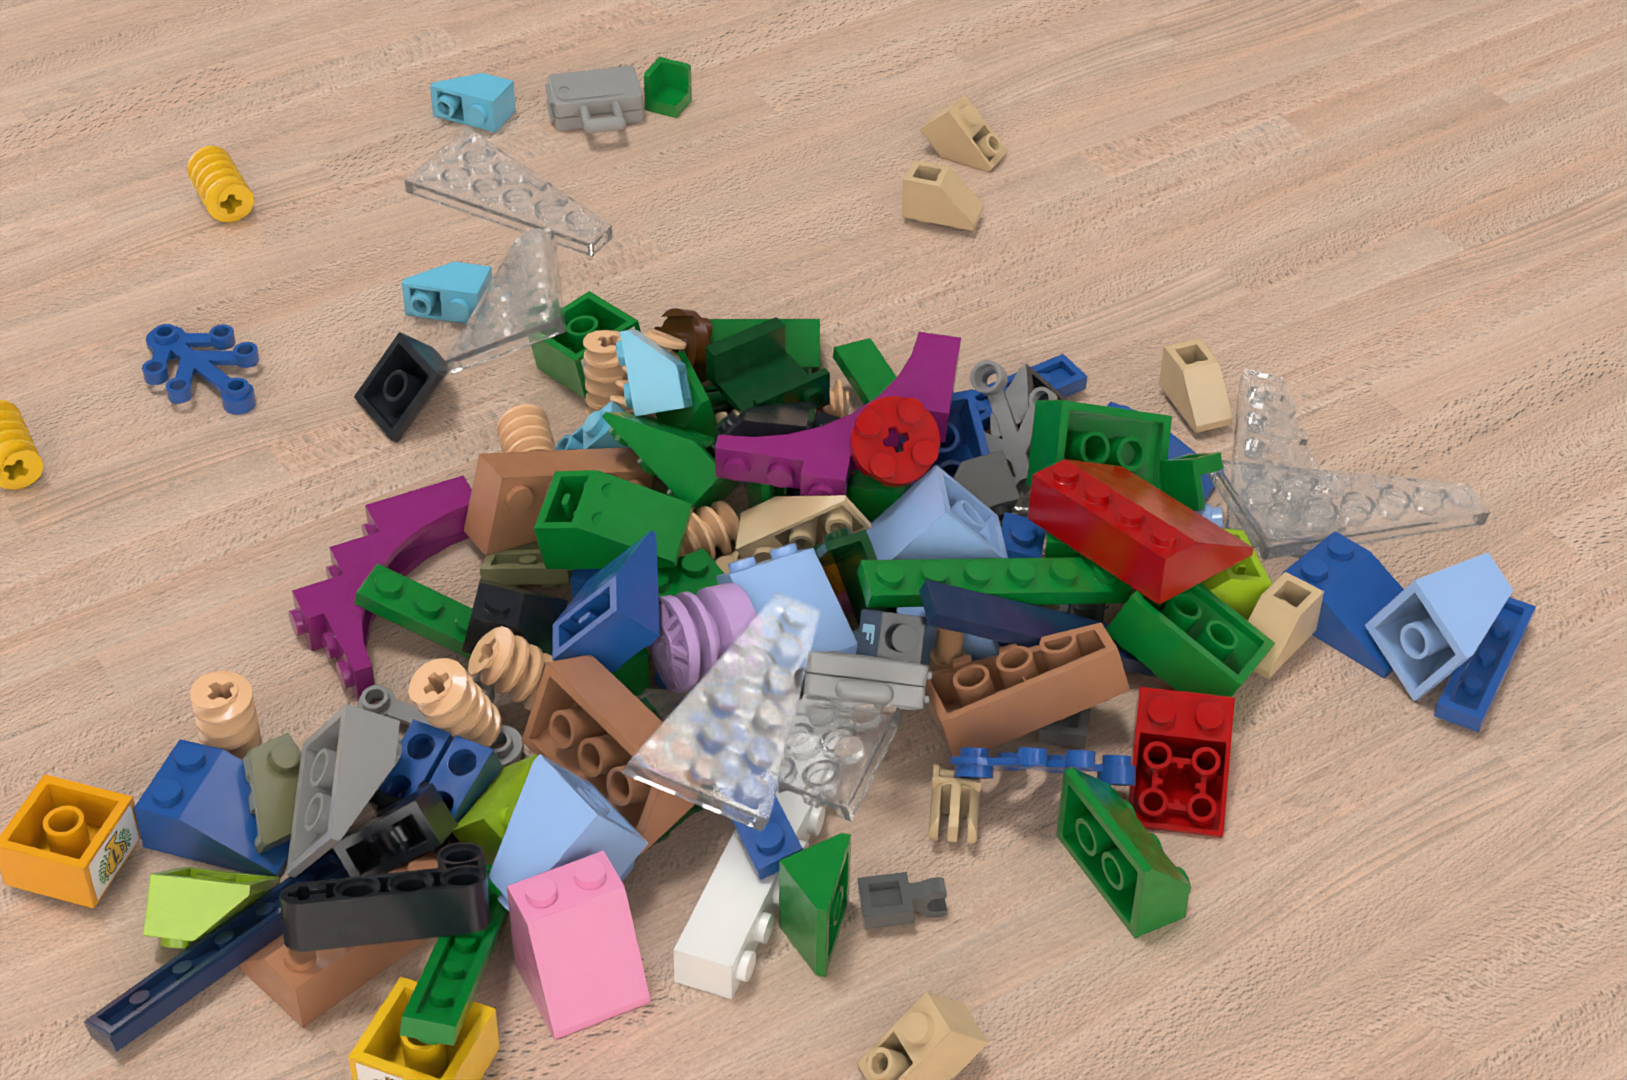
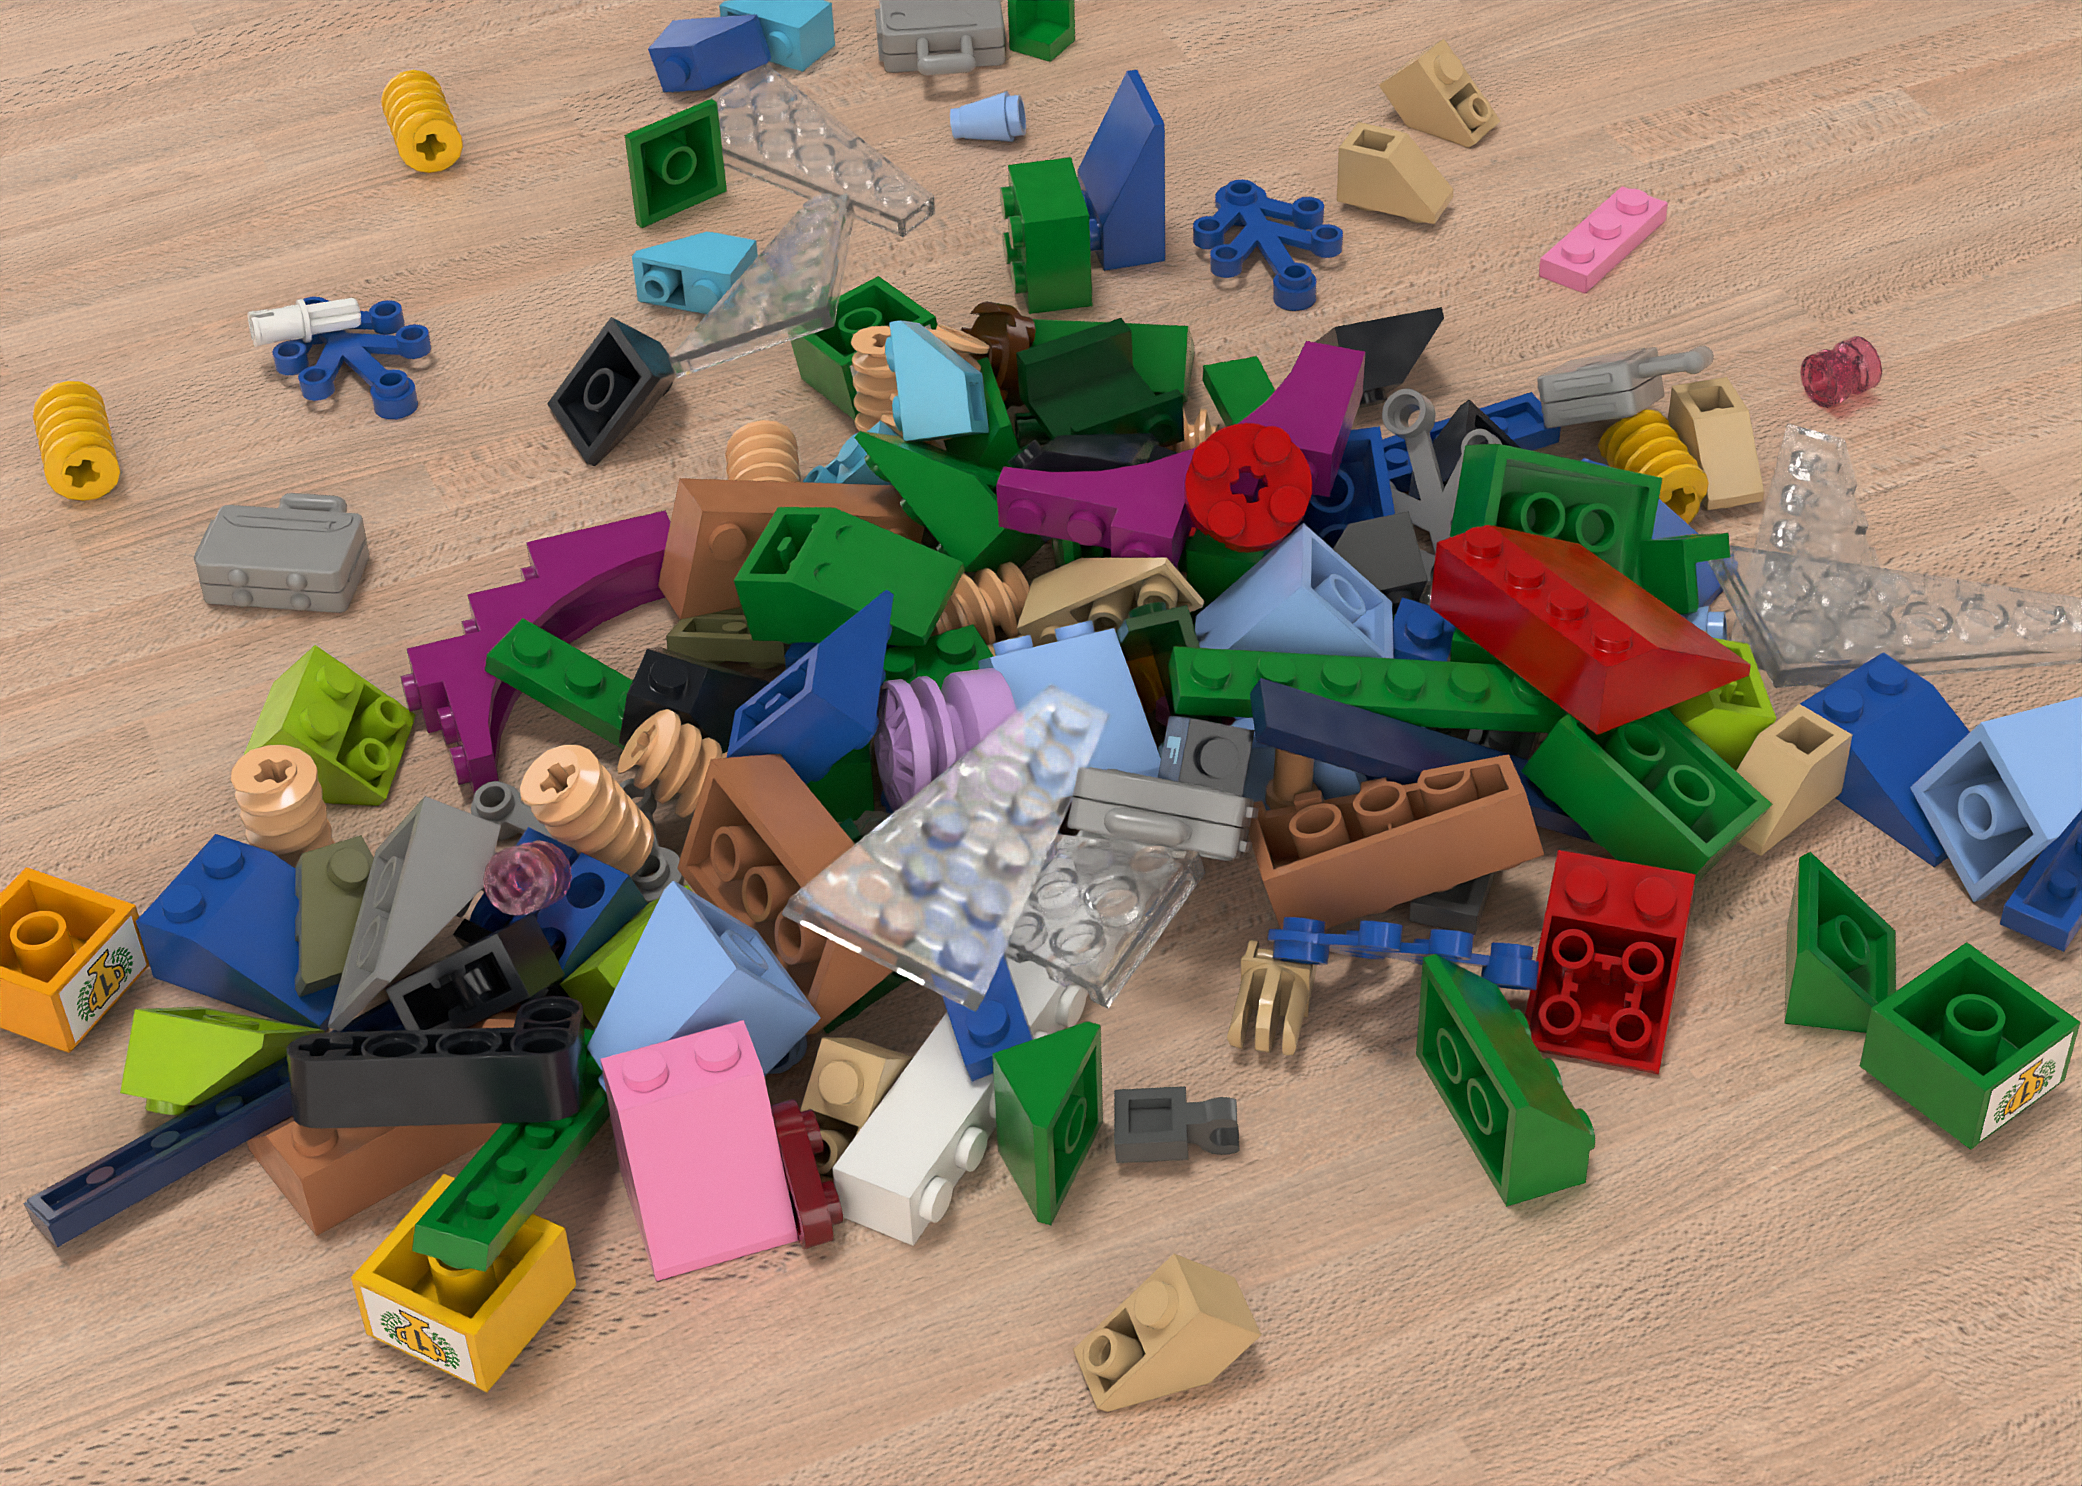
camera: 10 degrees right, 0 degrees up
(161, 344) = (302, 320): none -> white axle
(181, 524) = (285, 556): none -> light grey piece
(246, 642) = (341, 723): none -> lime slope
(421, 209) = (676, 163): none -> green slope
(426, 121) = (708, 51): none -> blue slope
(430, 751) = (543, 875): none -> clear pink wheel
(642, 164) = (991, 118): none -> light blue cone
(660, 972) = (813, 1203): none -> dark red plate
(668, 904) = (845, 1090): none -> tan slope
(704, 253) = (1047, 235): none -> green brick
(754, 210) = (1126, 180): none -> blue slope
(838, 222) = (1247, 205): none -> blue plant
(960, 321) = (1389, 348): none -> black slope
(1093, 237) = (1603, 239): none -> bright pink plate
(1121, 346) = (1612, 384): none -> light grey piece
(1152, 392) = (1653, 448): none -> yellow piece
(1270, 329) = (1832, 376): none -> clear pink wheel
(1330, 747) = (1835, 953): none -> green slope
(1429, 802) = (1969, 1044): none -> green brick

